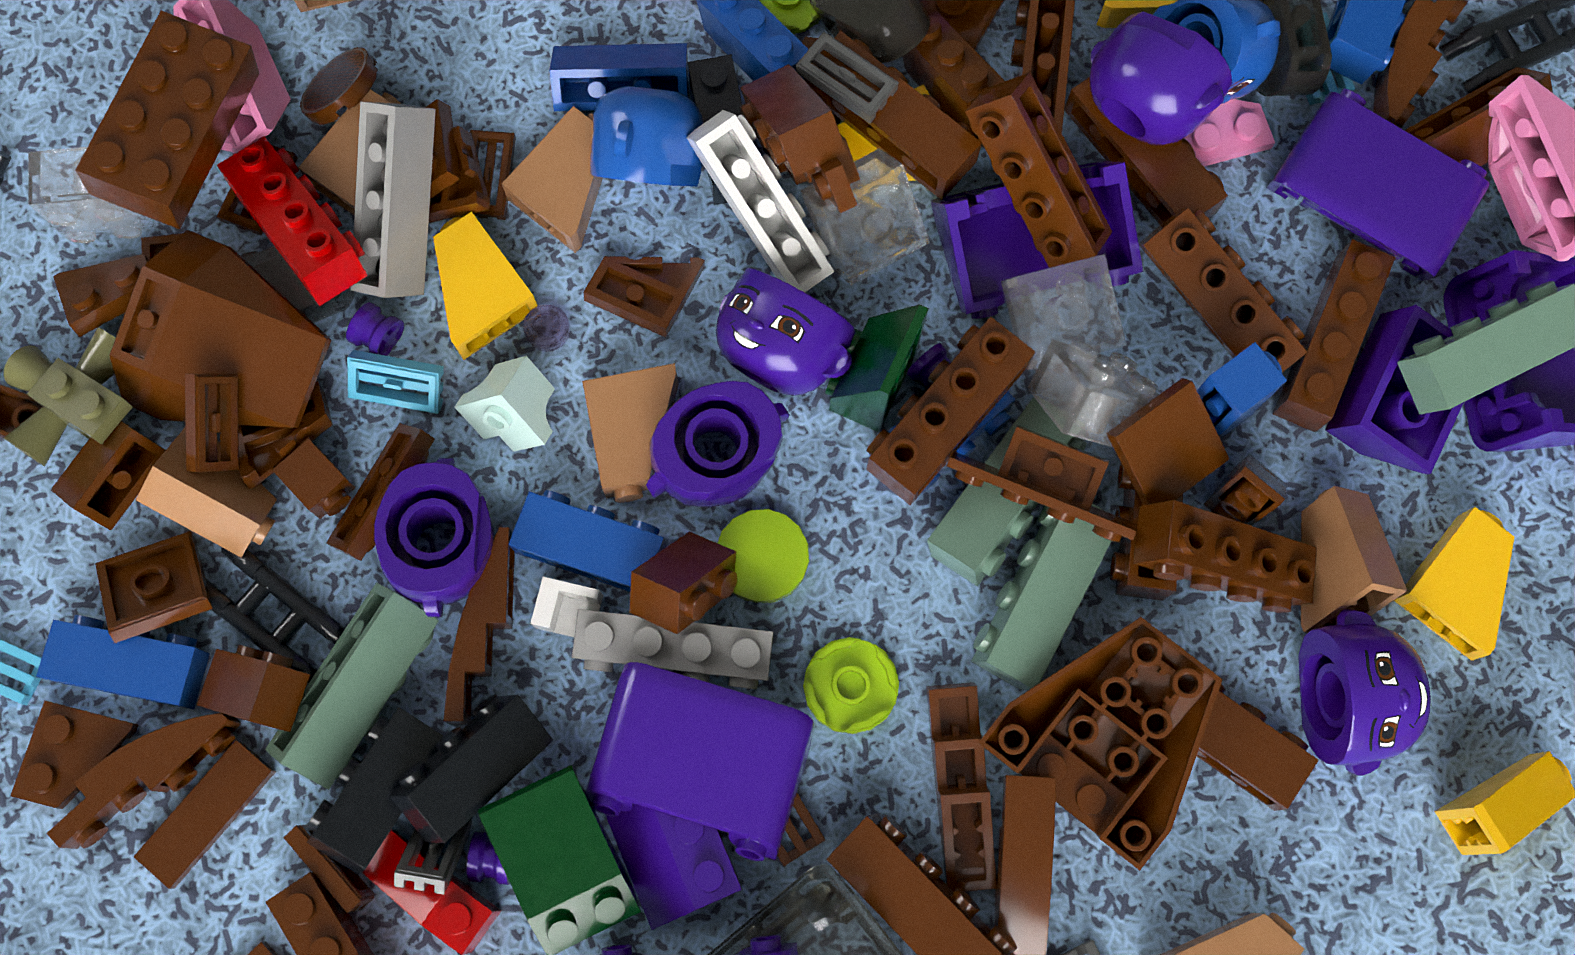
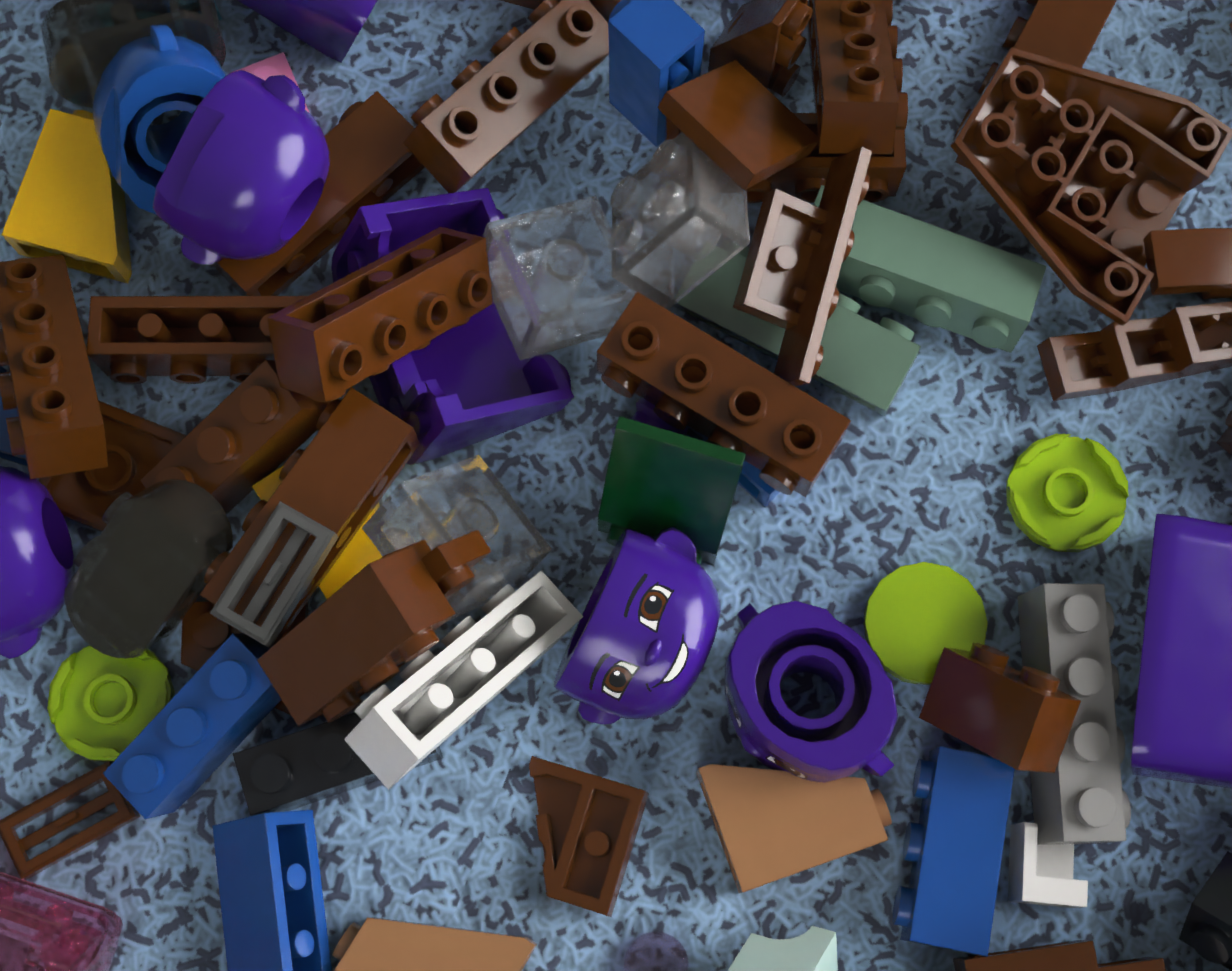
camera: 95 degrees left, 0 degrees up
(643, 137) = (387, 853): blue piece -> none

